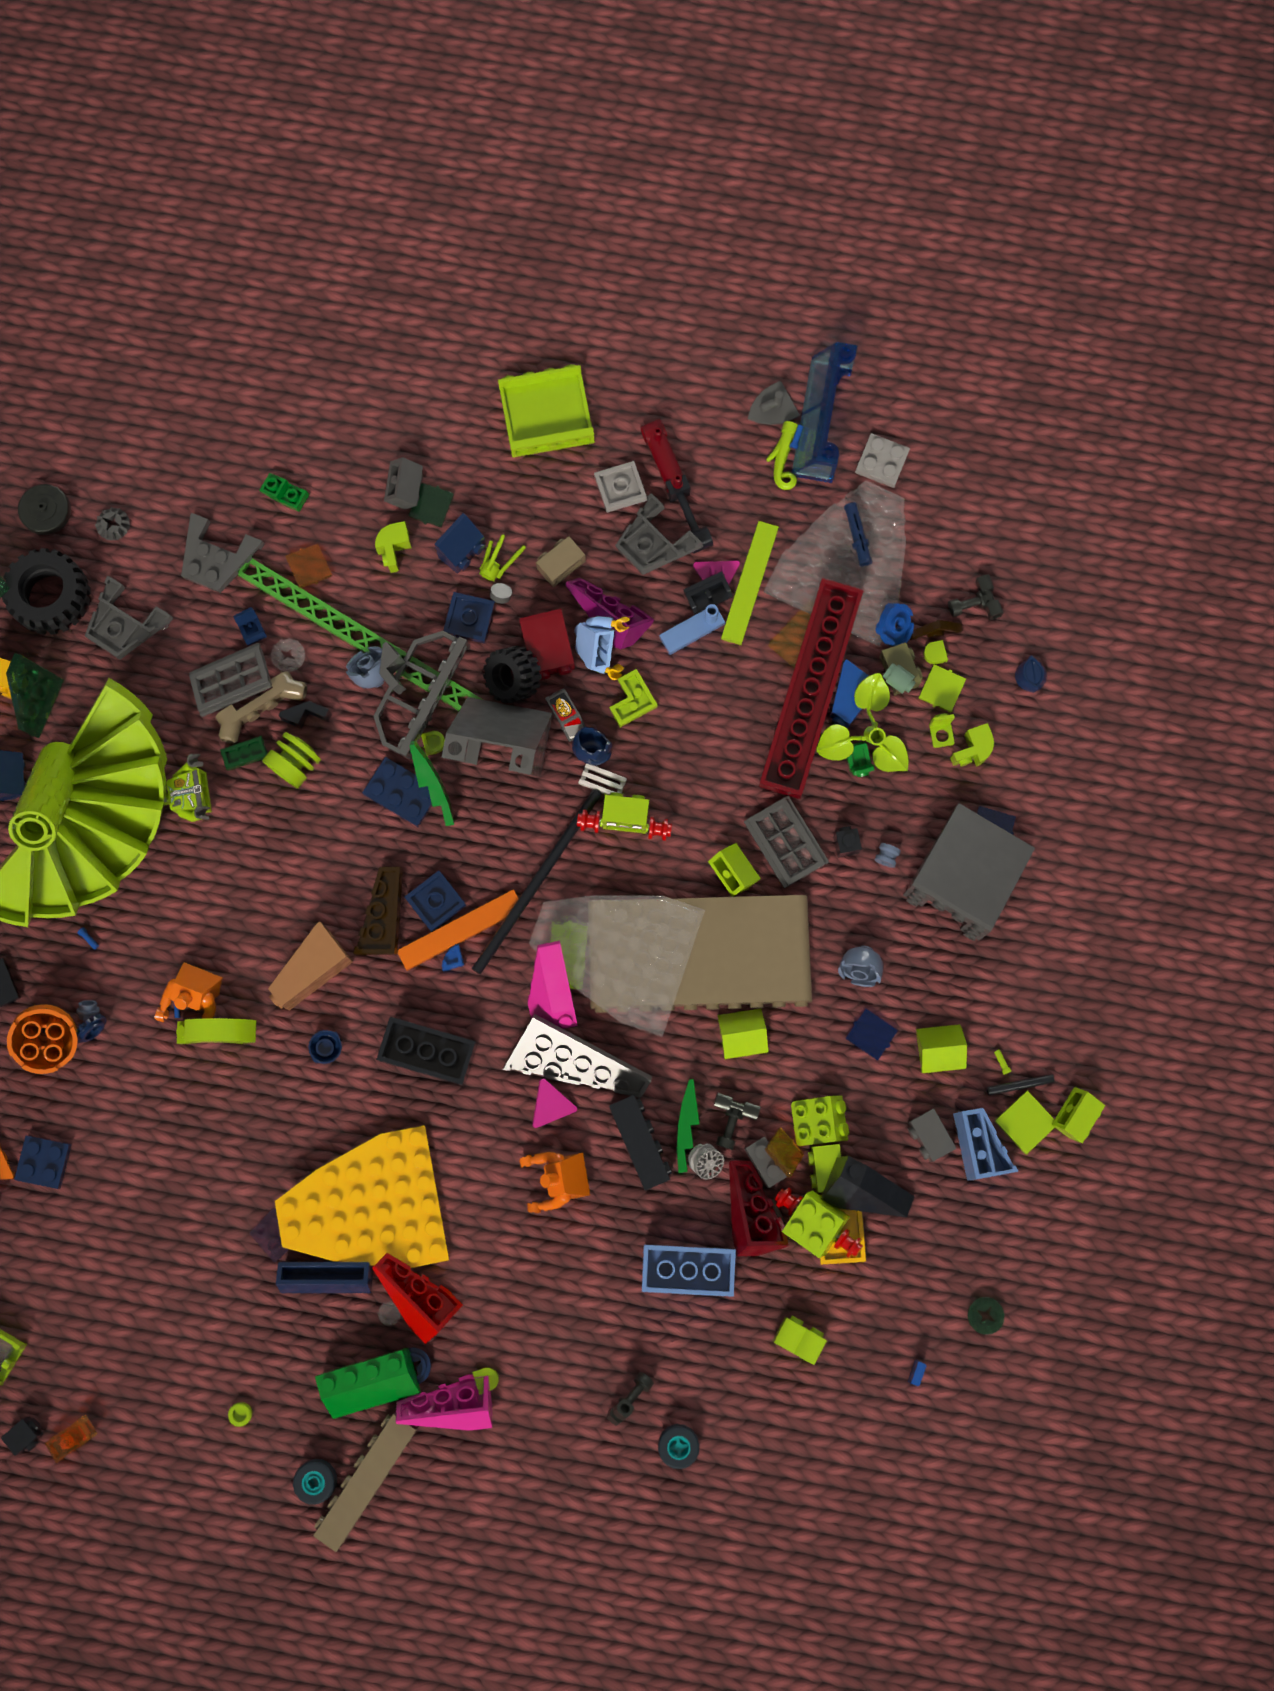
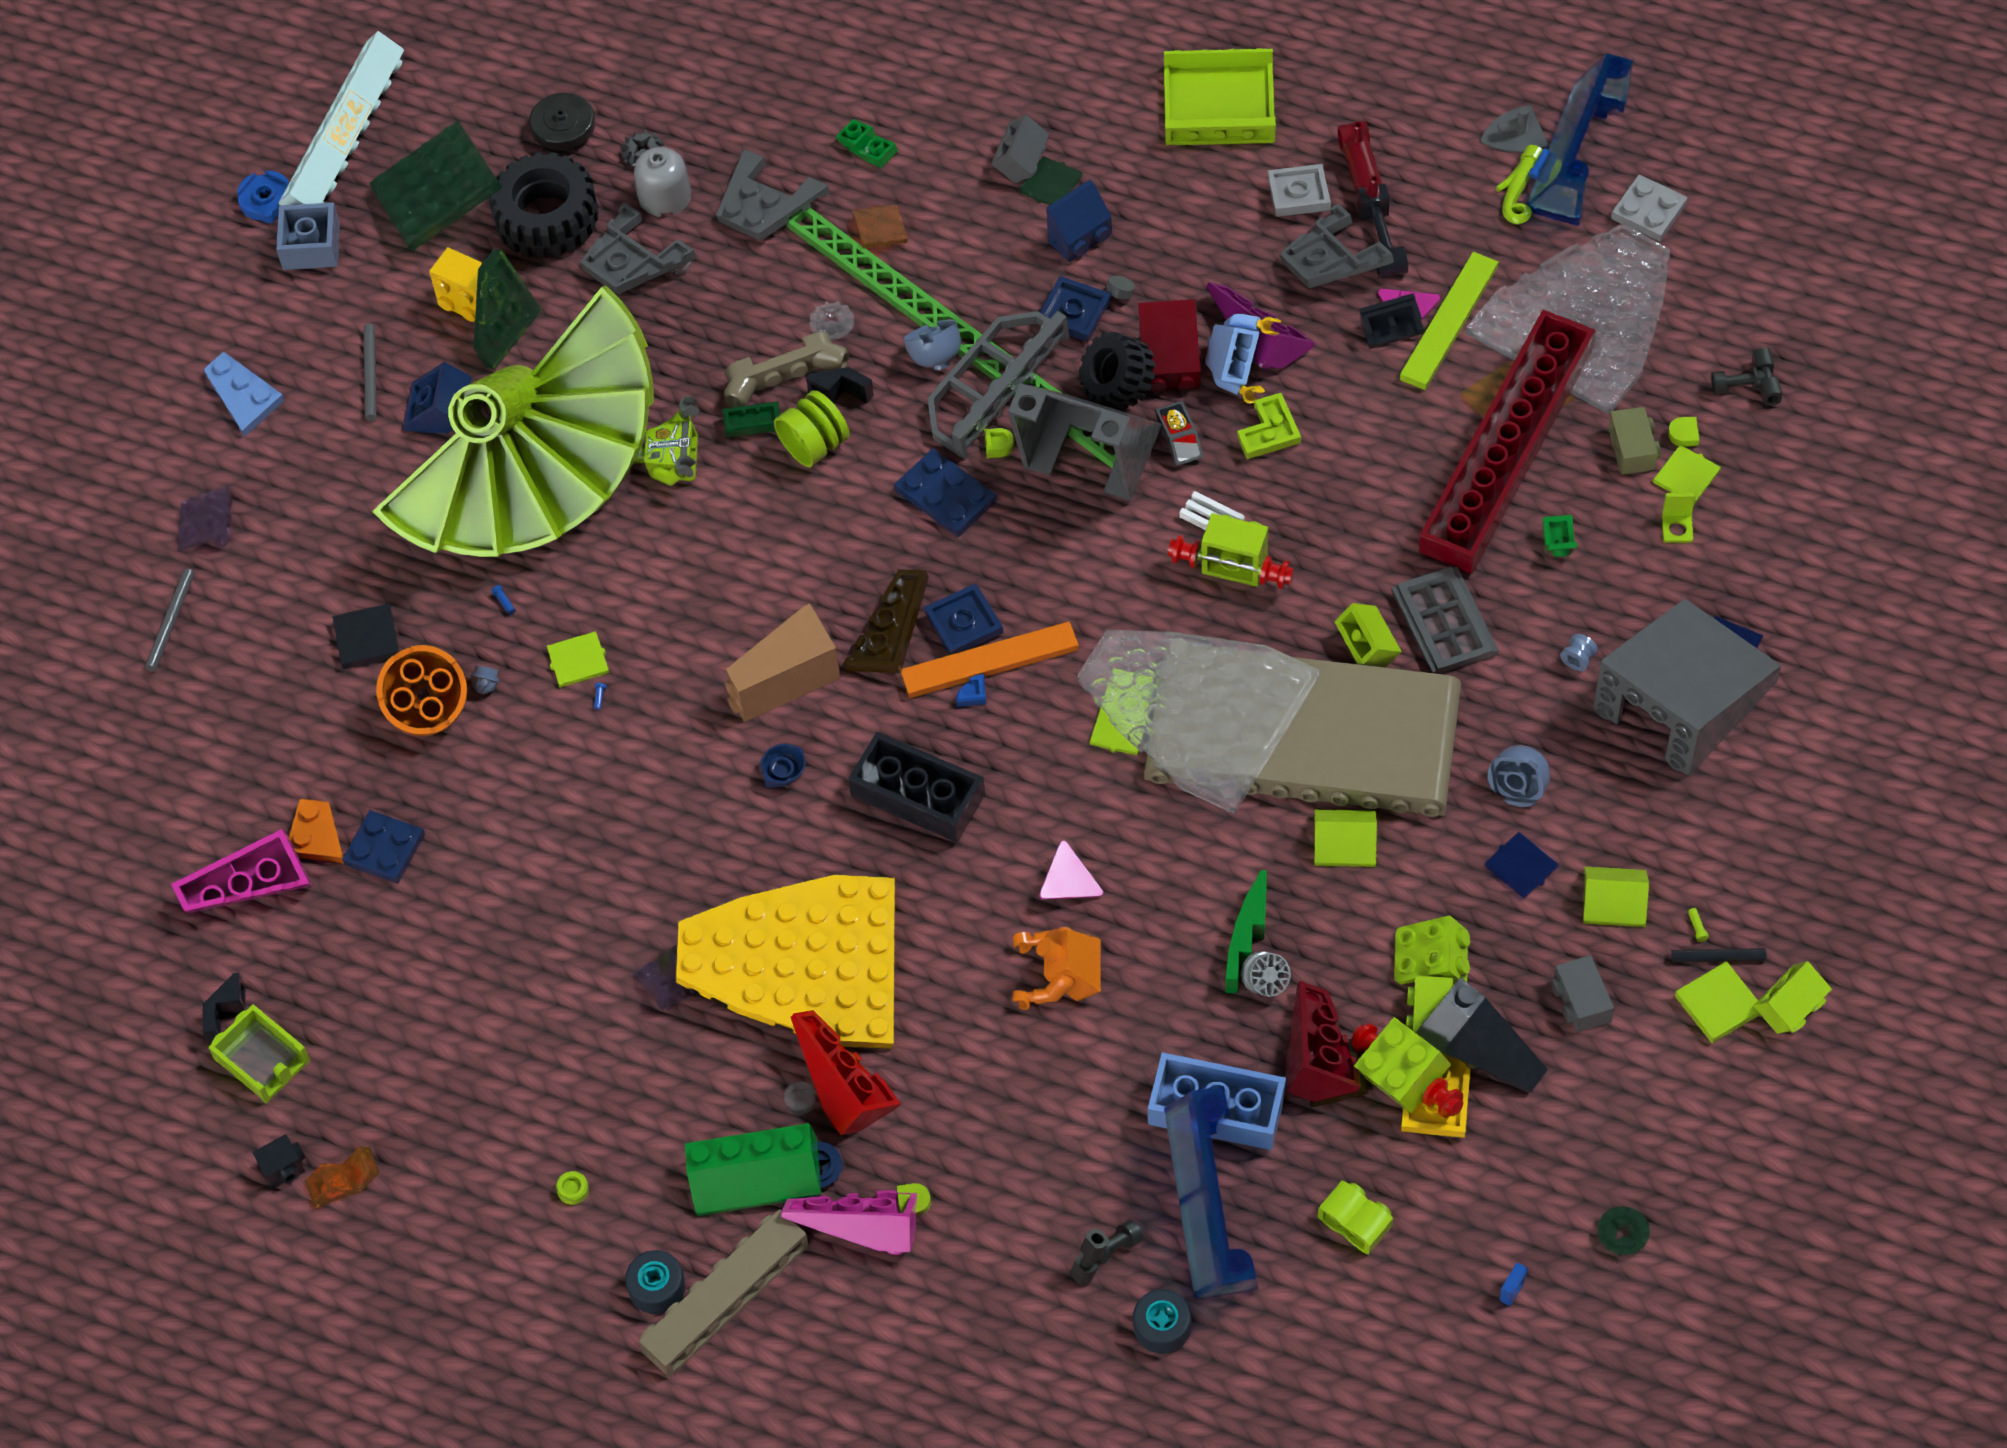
camera: 15 degrees right, 20 degrees down
(91, 1028) = (480, 702): dark blue gear -> none
(133, 561) = (662, 181): none -> light grey cylinder
(152, 978) = (577, 659): none -> lime piece
(191, 989) = (627, 668): orange torso -> none
(216, 1030) = (647, 717): lime arch -> none
(230, 679) = (753, 332): dark grey piece -> none
(250, 626) = (790, 278): dark blue bracket -> none
(324, 1277) = (723, 1032): dark blue brick -> none
(390, 663) = (961, 338): dark grey slope -> none
(392, 539) = (992, 210): lime brick -> none
(428, 776) = (983, 467): green slope -> none
(490, 568) = (1113, 258): lime plant -> none
(534, 885) = (1093, 622): black piece -> none
(550, 988) = (1094, 735): dark pink wedge -> none
(560, 561) = (1205, 262): dark tan brick -> none
(569, 1059) = (1105, 825): wing -> none
(591, 746) = (1204, 470): dark blue hair -> none
(639, 1142) = (1180, 934): black brick -> none
(678, 1308) = (1212, 1265): none -> windscreen
(692, 629) = (1365, 360): medium blue piece -> none
(735, 1111) = (1316, 927): pearl dark grey bar -> none
(764, 1163) = (1348, 989): dark grey brick -> none
(784, 1152) = (1375, 977): clear orange piece -> none
(837, 745) = (1590, 458): lime plant -> none
(844, 708) = (1563, 462): blue slope -> none
(847, 842) = (1526, 628): black brick -> none
(860, 542) = (1602, 287): dark blue pin -> none
(892, 615) = (1621, 384): blue plate -> none
(899, 678) = (1627, 441): sand green brick -> none
(936, 629) = (1688, 401): dark brown tile -> none
(980, 746) = (1723, 545): lime brick -> none
(980, 1146) = (1649, 1016): medium blue wedge -> none
(1031, 675) = (1810, 474): dark blue hat -> none

